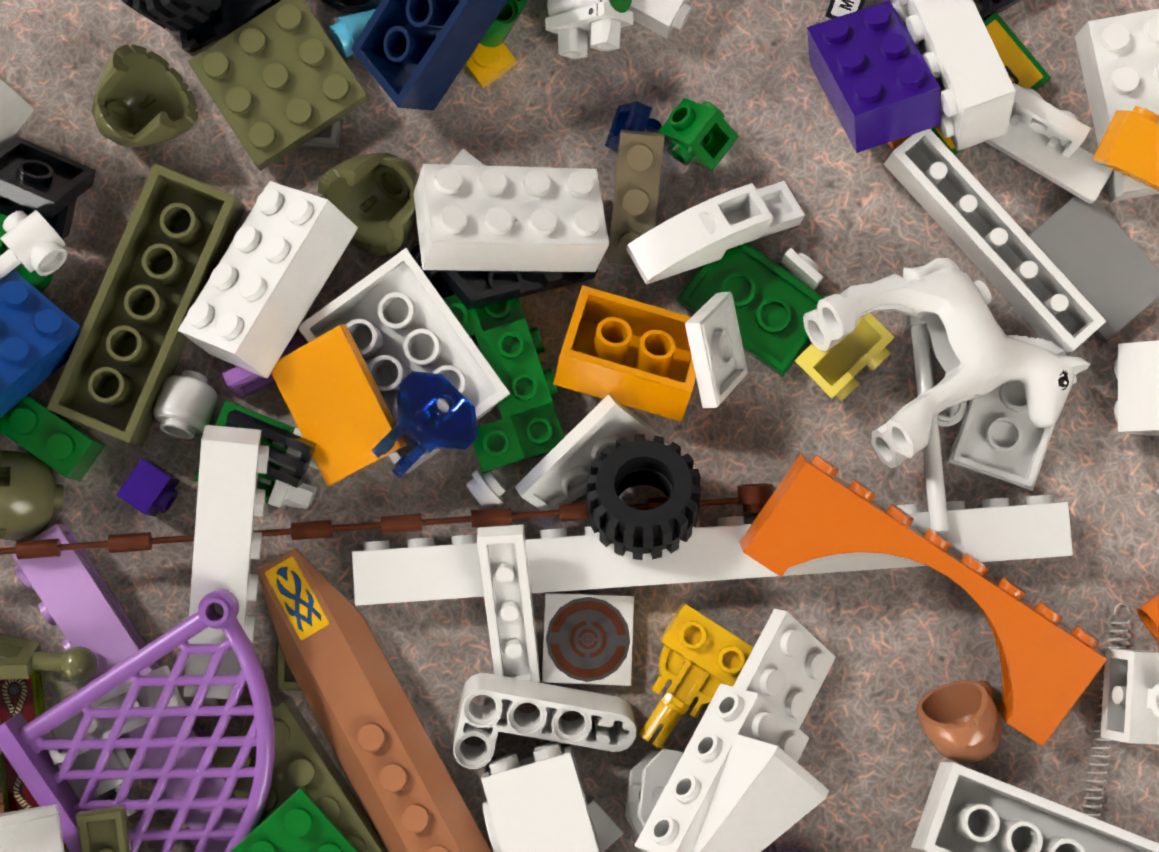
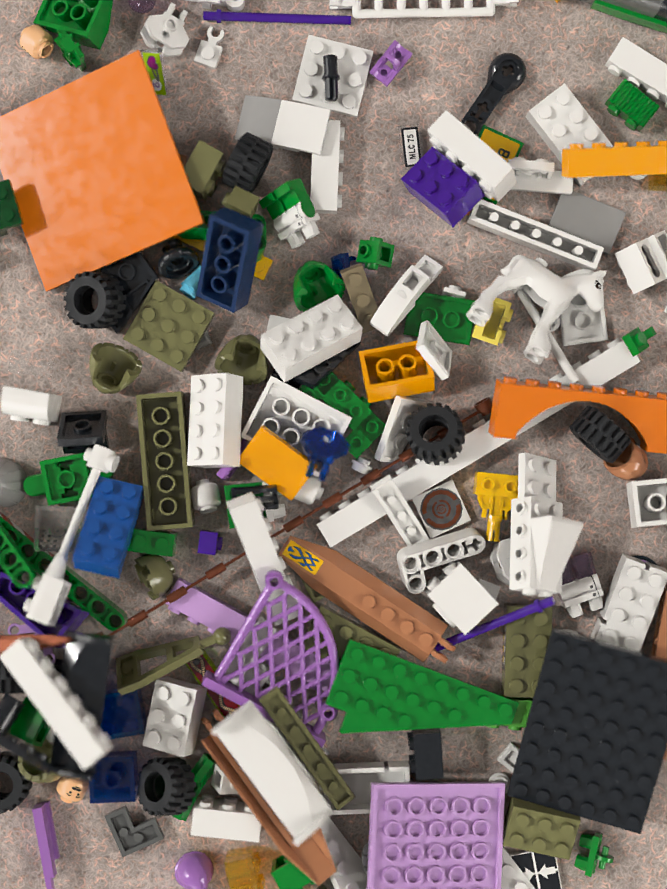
camera: 30 degrees left, 5 degrees up
(372, 487) = (310, 491): none -> white head
(567, 132) = (315, 284): none -> green hair
(938, 648) = (600, 434): none -> black tyre
(1085, 515) = (637, 341): none -> green plate

